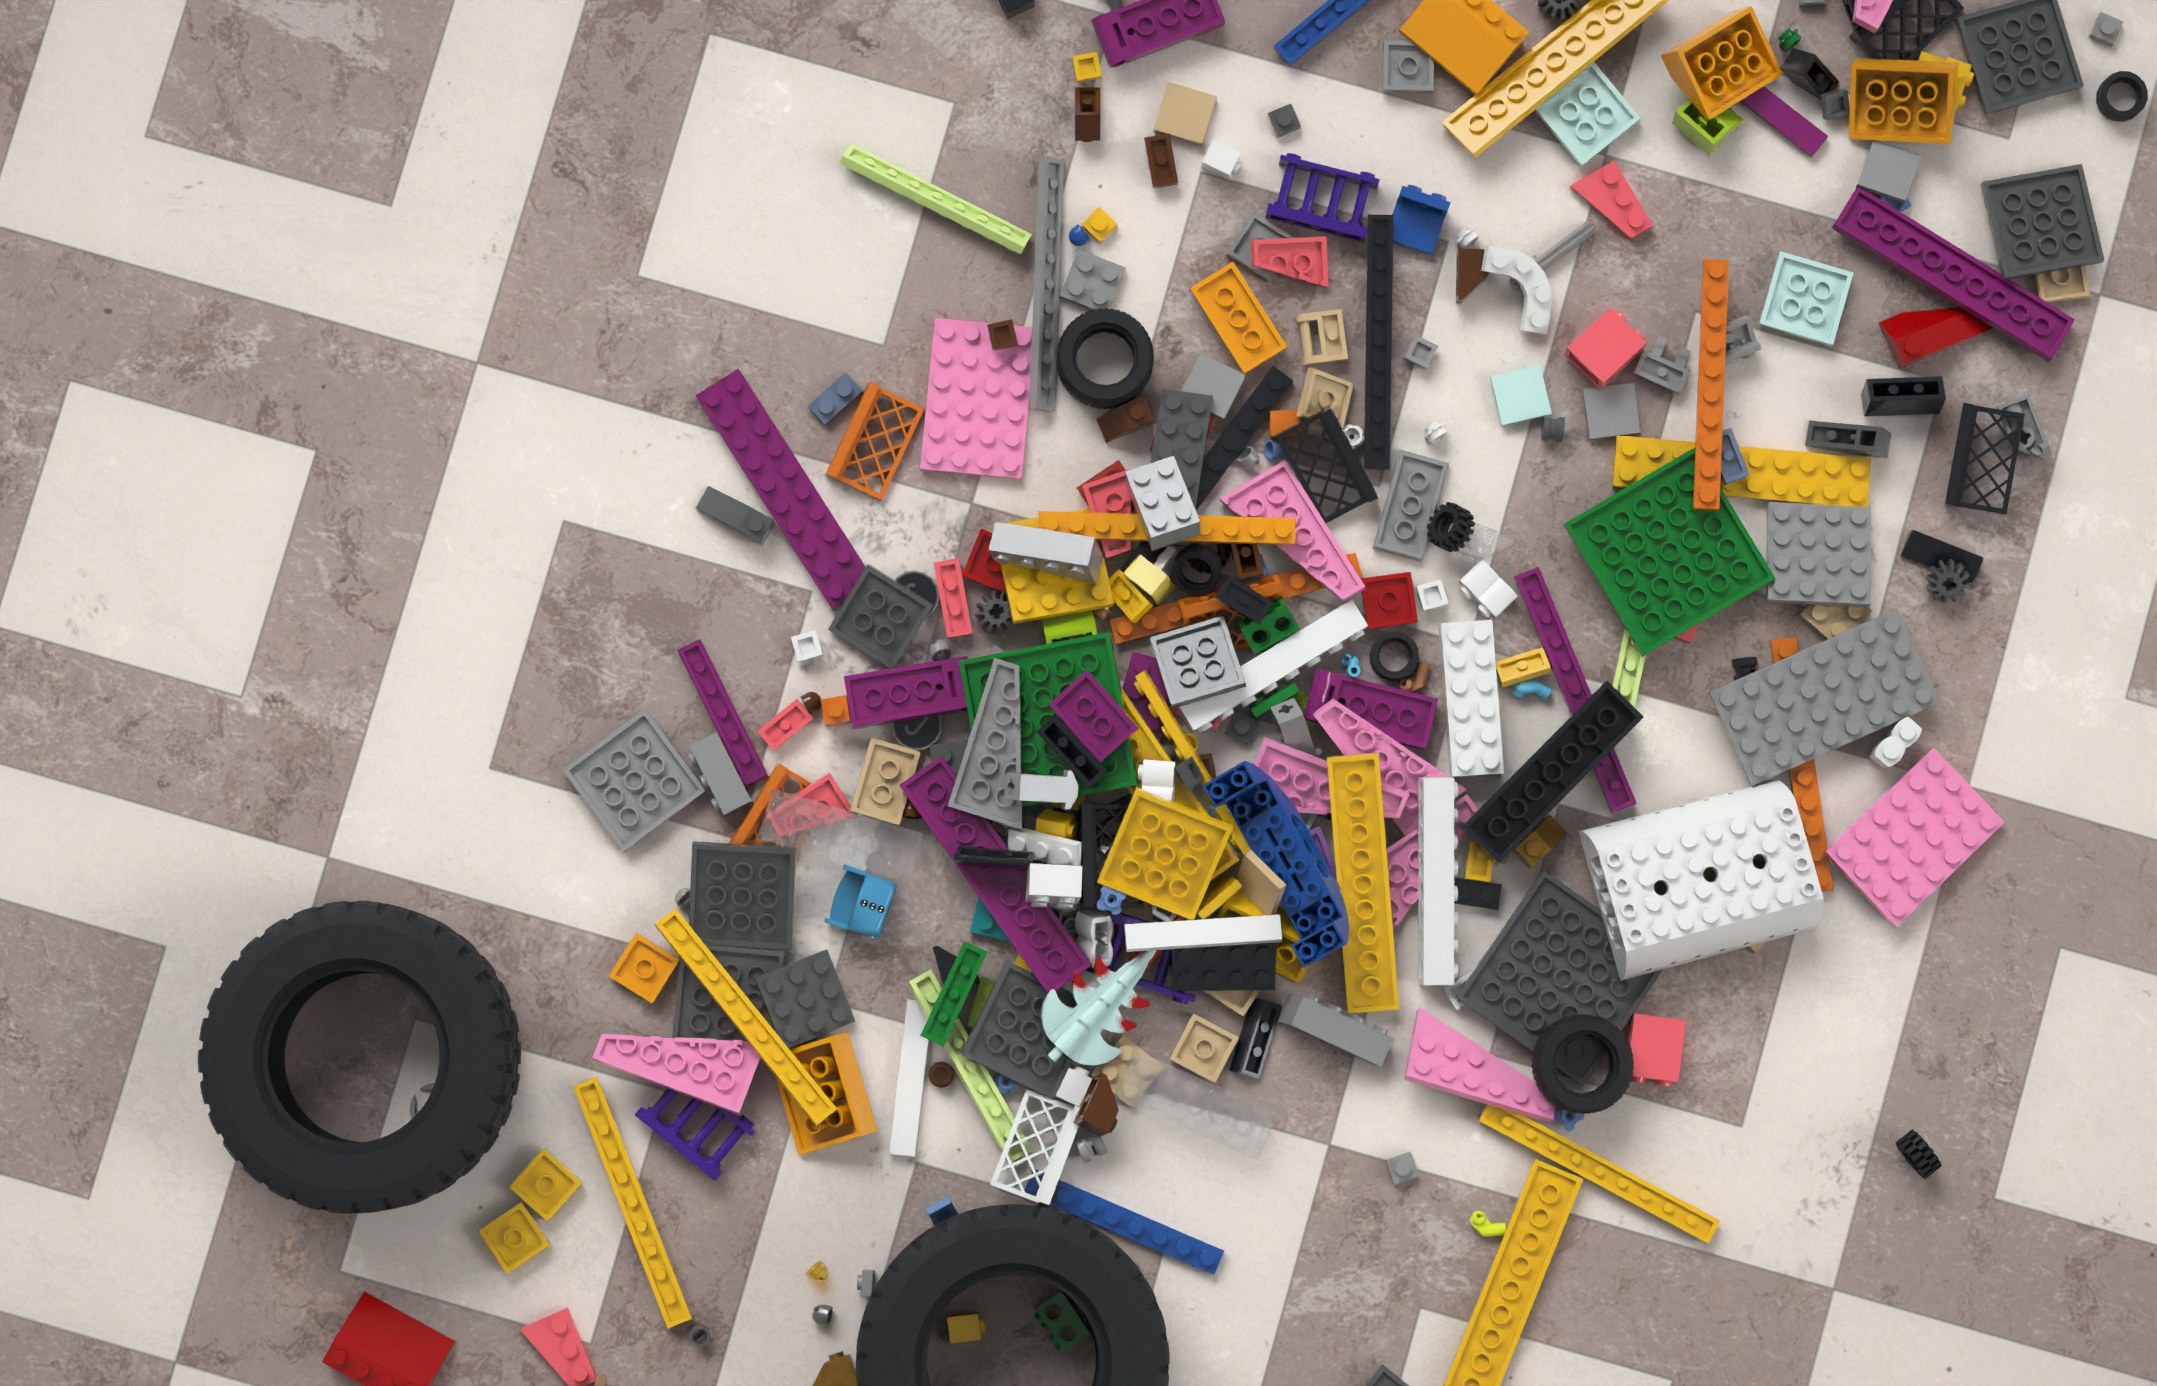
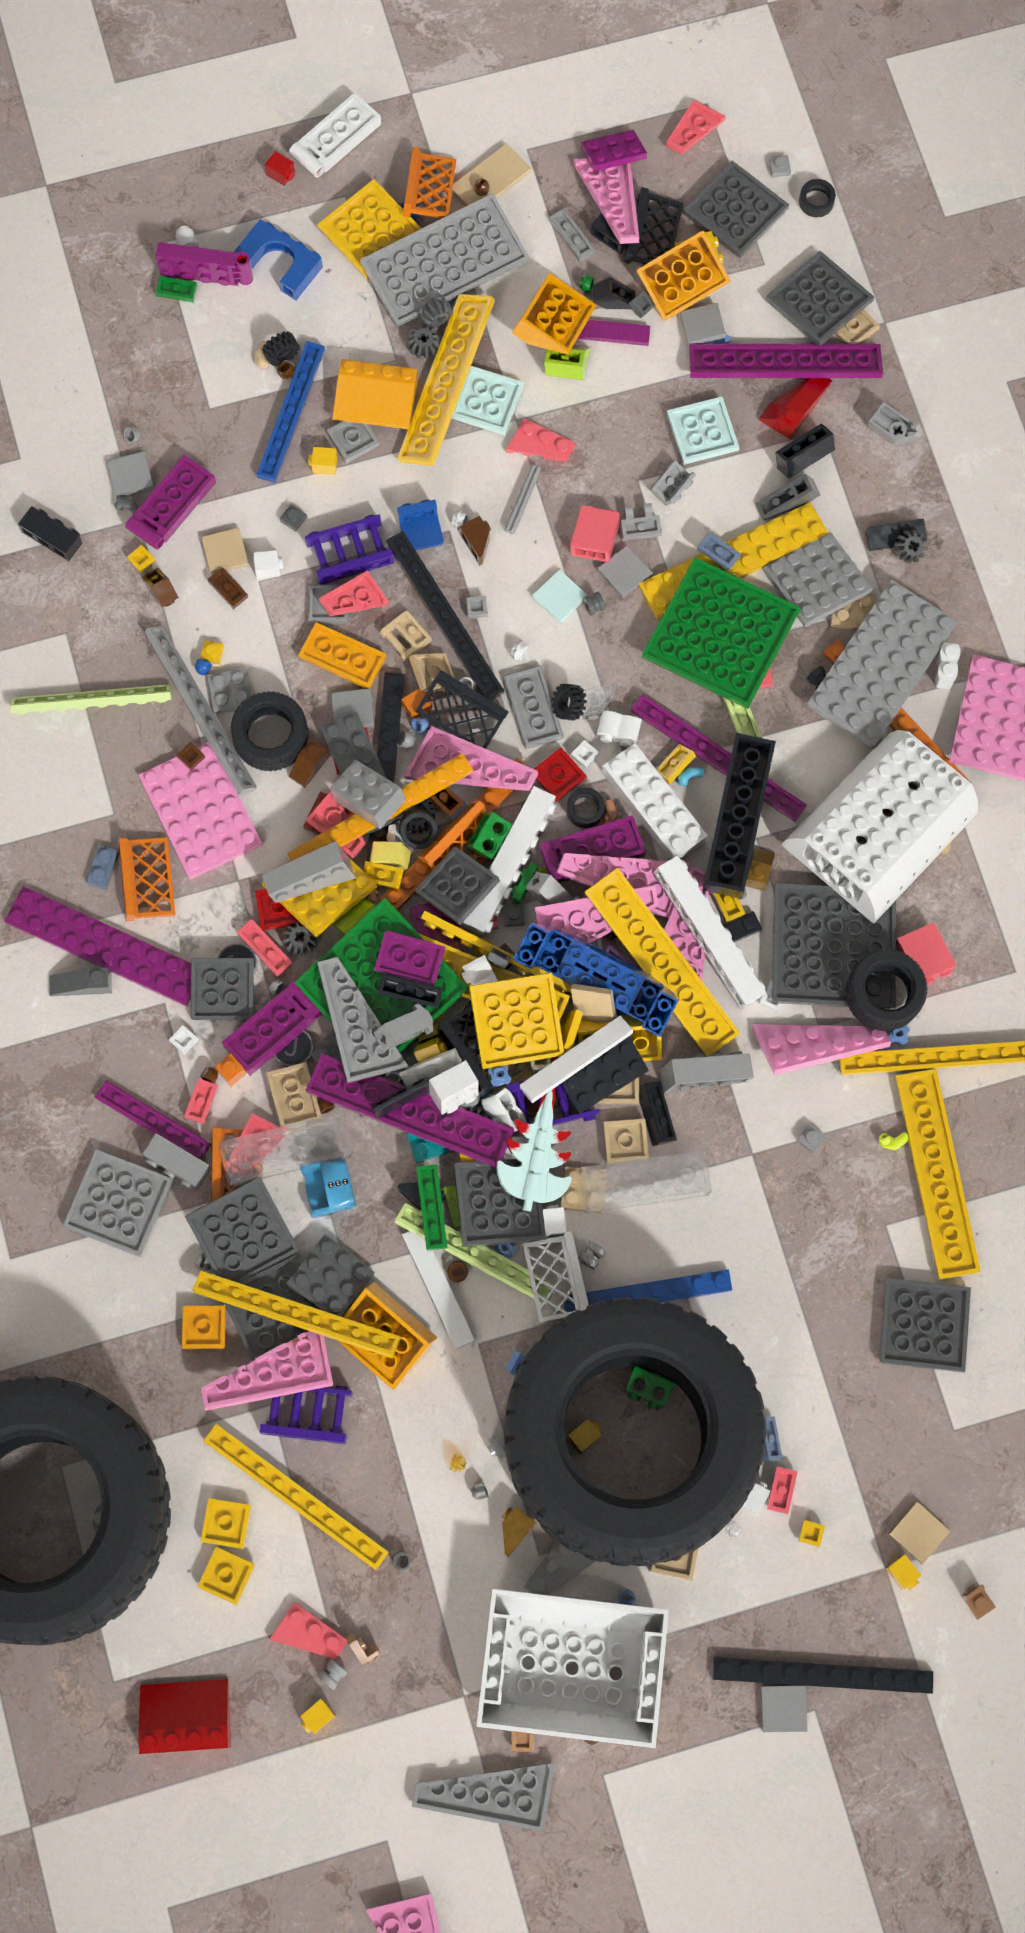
camera: 30 degrees left, 10 degrees down
(1098, 1108) = (580, 1223): reddish brown slope -> none
(1244, 600) = (462, 824): black plate -> none
(1352, 665) = (561, 830): medium azure arm -> none
(1358, 74) = (323, 460): none -> yellow brick
(1531, 280) = (520, 520): white plate -> none
(1710, 385) = (679, 514): orange plate -> none
(1962, 454) = (865, 461): black fence -> none

